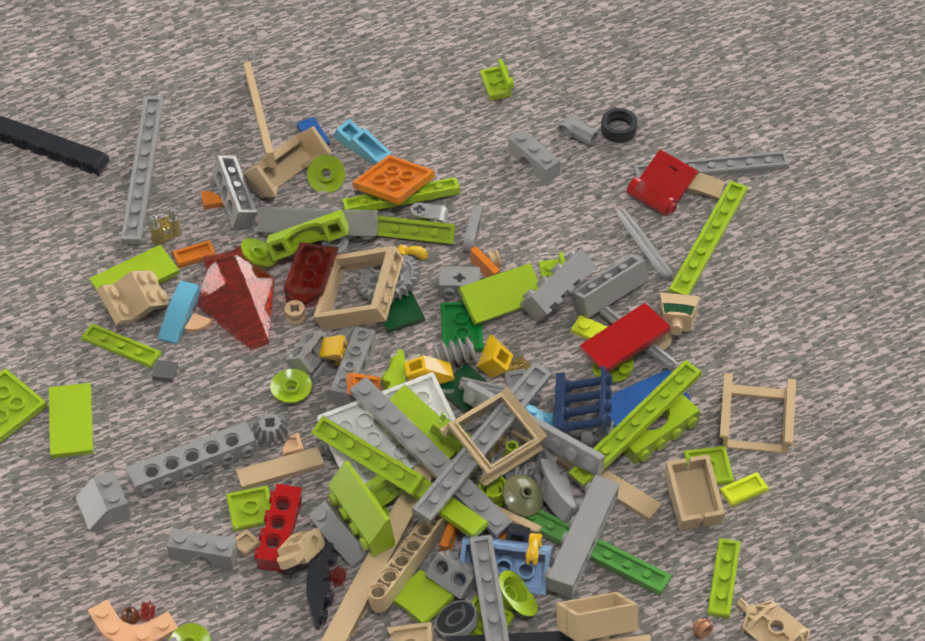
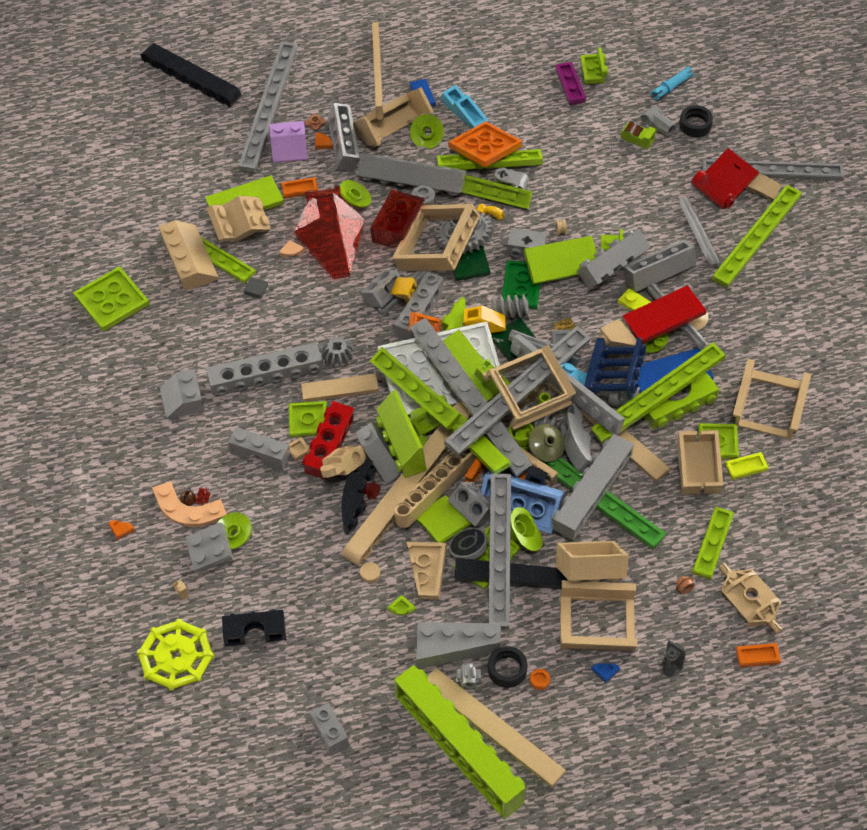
camera: 10 degrees right, 5 degrees up
(70, 420) = (167, 319): lime tile -> none
(81, 344) = (188, 254): none -> tan slope
(165, 228) = (277, 161): clear yellow piece -> none
(177, 196) = (288, 142): none -> lavender slope
(179, 312) = (277, 237): medium azure slope -> none
(198, 180) = (315, 125): none -> nougat plate
(290, 379) = (359, 310): lime dish -> none
(293, 445) = (354, 369): light nougat tile -> none
(295, 312) = (377, 251): tan wheel -> none
(322, 228) = (415, 179): lime arch -> none
(473, 227) = (548, 196): light grey beam -> none
(474, 101) = (570, 83): none -> magenta plate
(480, 260) = (549, 227): orange tile -> none
(495, 357) = (545, 316): yellow slope -> none
(532, 550) = (544, 495): yellow arm -> none
(544, 163) = (621, 146): light grey arch -> none
(561, 148) = (638, 135): none -> lime leg
(578, 367) = (617, 335): none -> tan slope
(580, 92) = (667, 86): none -> medium azure pin
(678, 311) = (717, 297): tan torso -> none

